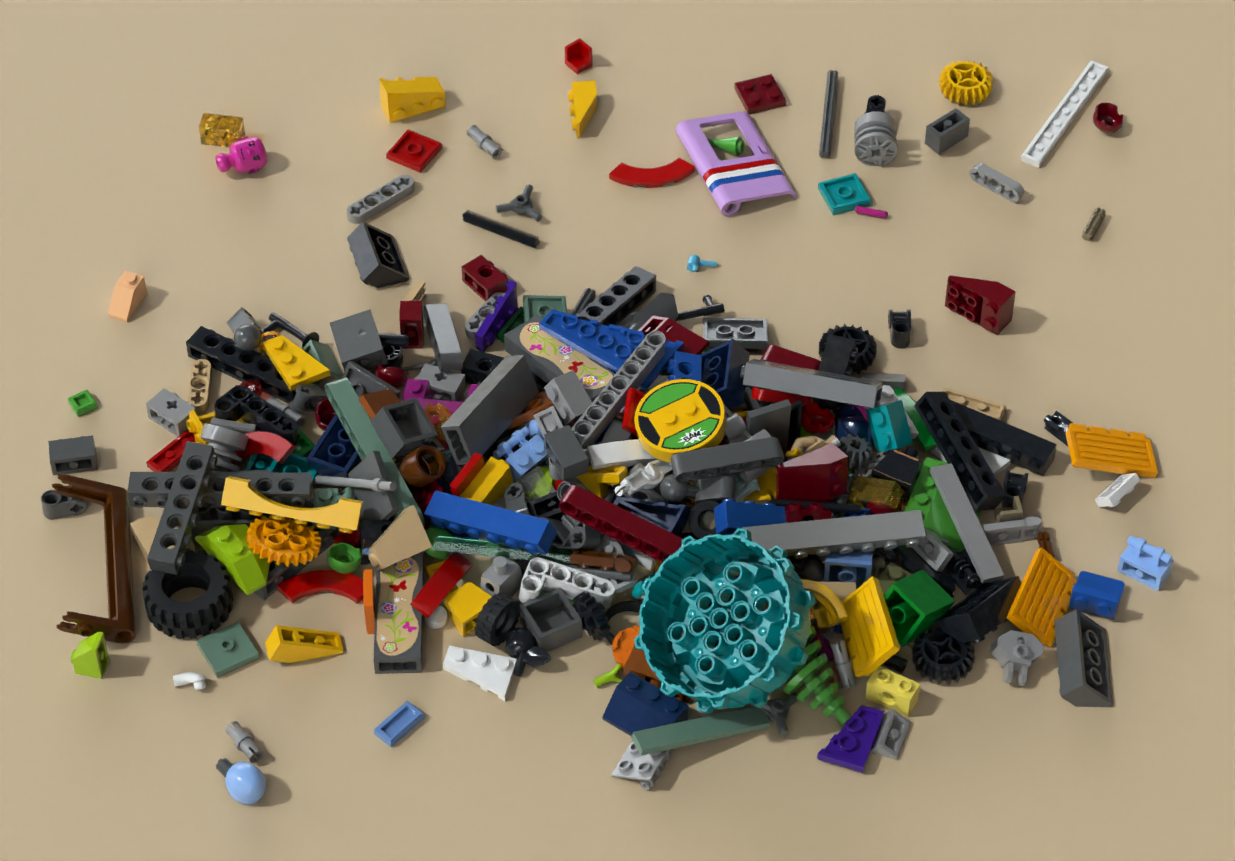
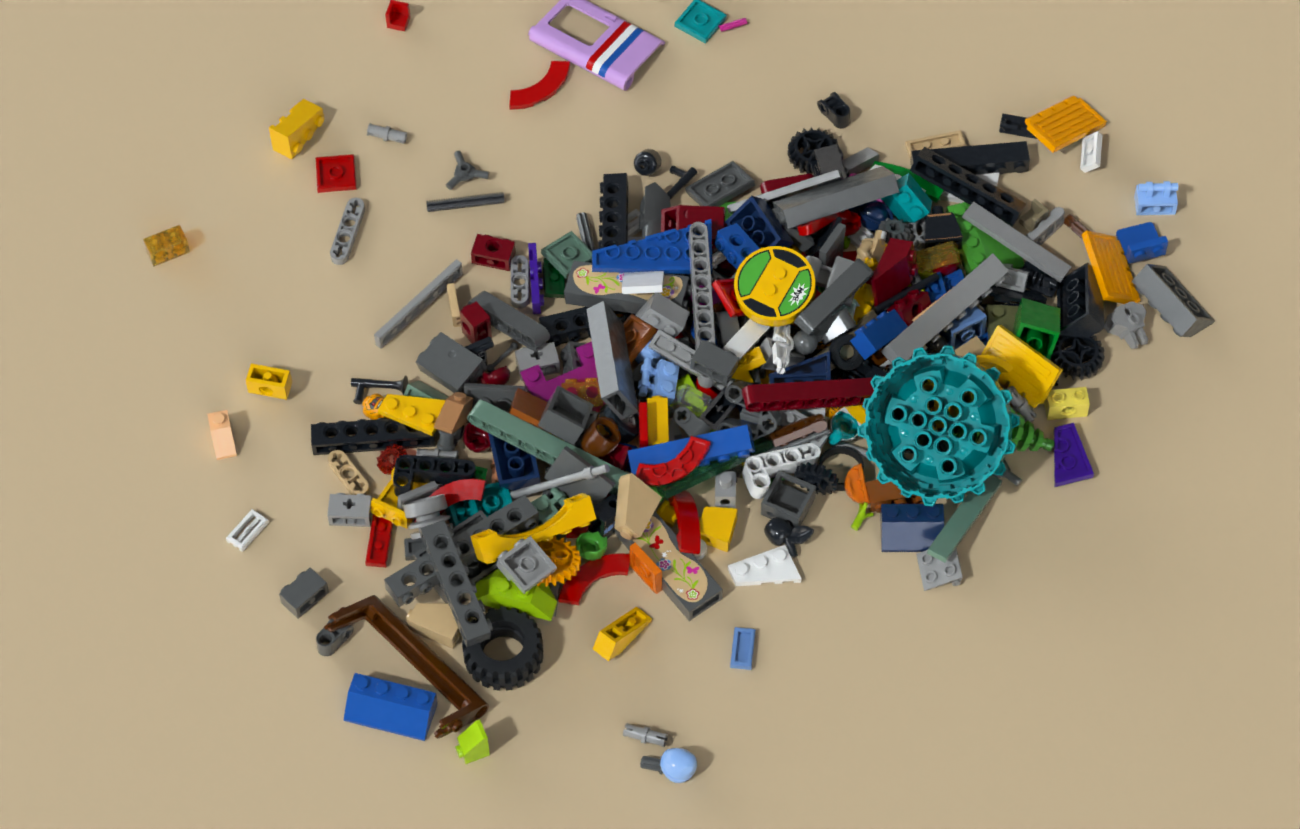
camera: 35 degrees left, 10 degrees up
(53, 583) = (390, 706): none -> blue slope
(78, 385) = (255, 531): none -> white tile
(82, 403) = (267, 545): bright green tile -> none
(190, 677) = (559, 711): white arm -> none
(201, 275) = (268, 381): none -> yellow brick
(227, 649) = (565, 672): sand green plate -> none
(244, 156) = (207, 257): dark pink piece -> none
(246, 330) = (360, 410): dark grey beam -> none
(251, 525) = (525, 564): none -> light grey plate
(314, 381) = (454, 412): none -> medium nougat slope
(377, 256) = (389, 282): black slope -> none
(382, 285) = (418, 304): none -> light grey tile
(463, 528) = (678, 467): none -> red tile
(497, 619) = (752, 523): black tyre -> none
(571, 358) = (643, 282): none -> white tile
(584, 104) = (435, 53): yellow slope -> none
(685, 278) = (647, 162): none -> black head
(694, 262) = (639, 144): medium azure hand -> none
(733, 145) = (581, 27): bright green cone -> none
(805, 361) = (793, 189): none -> light grey tile
(891, 735) = (1089, 436): light grey slope -> none
(981, 301) = (881, 56): dark red slope -> none
(1013, 486) = (1022, 191): black piece -> none

